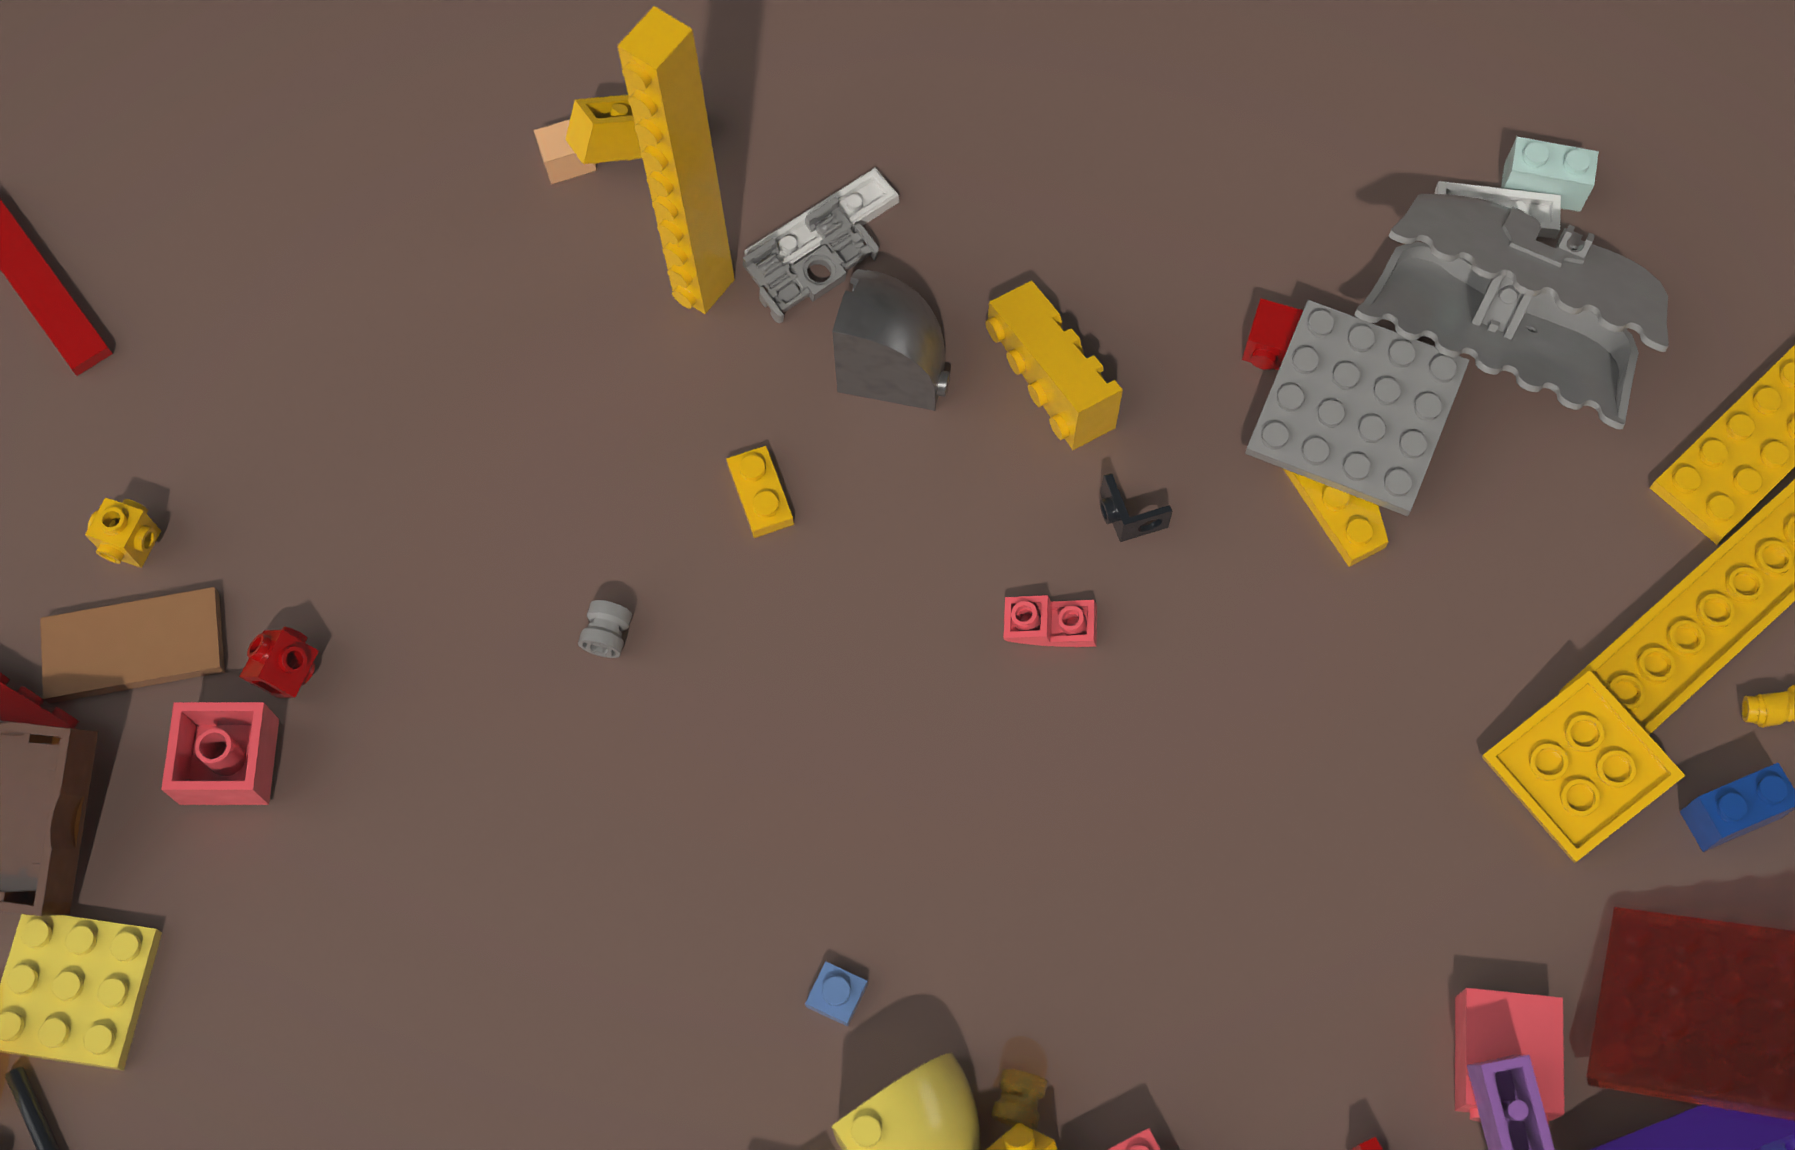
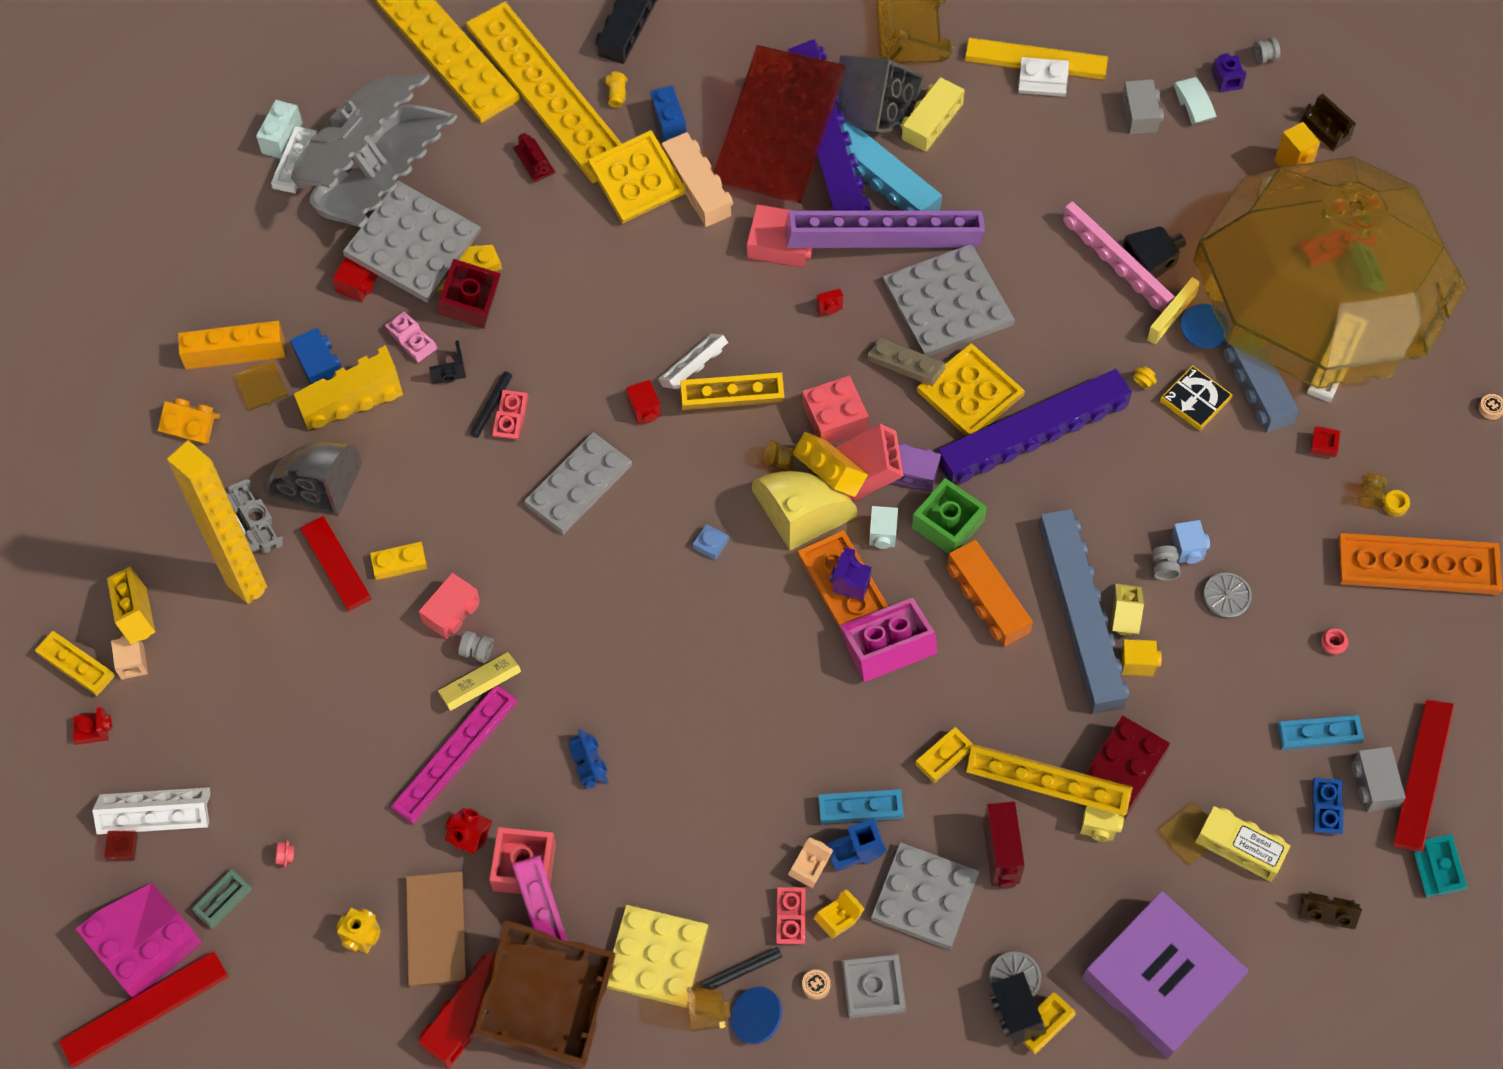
camera: 85 degrees left, 5 degrees down
(127, 246) = (139, 938): none -> dark pink slope
(136, 786) = (539, 897): none -> dark pink tile
(216, 361) = (228, 906): none -> sand green tile
(256, 411) = (284, 853): none -> coral plate
(271, 199) = (121, 845): none -> clear red plate
(315, 230) = (152, 810): none -> white fence
(398, 844) = (585, 748): none -> blue hinge
(426, 628) = (454, 754): none -> dark pink tile
(458, 128) = (92, 727): none -> red bracket
(546, 644) = (479, 681): none -> light yellow tile
(555, 84) = (74, 663): none -> yellow plate
(675, 578) = (449, 606): none -> coral brick
(747, 400) = (335, 563): none -> red tile
(932, 751) = (578, 483): none -> light grey plate
(978, 150) = (187, 421): none -> light orange bracket
(1059, 241) = (261, 385): none -> clear yellow piece
(1069, 587) = (490, 404): none -> black bar
(1100, 840) = (643, 402): none -> red brick
(1112, 305) = (314, 355): none -> blue brick
(1118, 183) = (231, 345): none -> light orange brick
(1138, 995) = (731, 391): none -> yellow brick
(1181, 442) = (410, 337): none -> bright pink slope
(1200, 918) = (693, 361): none -> white plate
(1270, 512) = (468, 293): none -> dark red brick
(1589, 583) = (533, 158): none -> dark red hinge
(1606, 877) = (701, 185): none -> light nougat brick

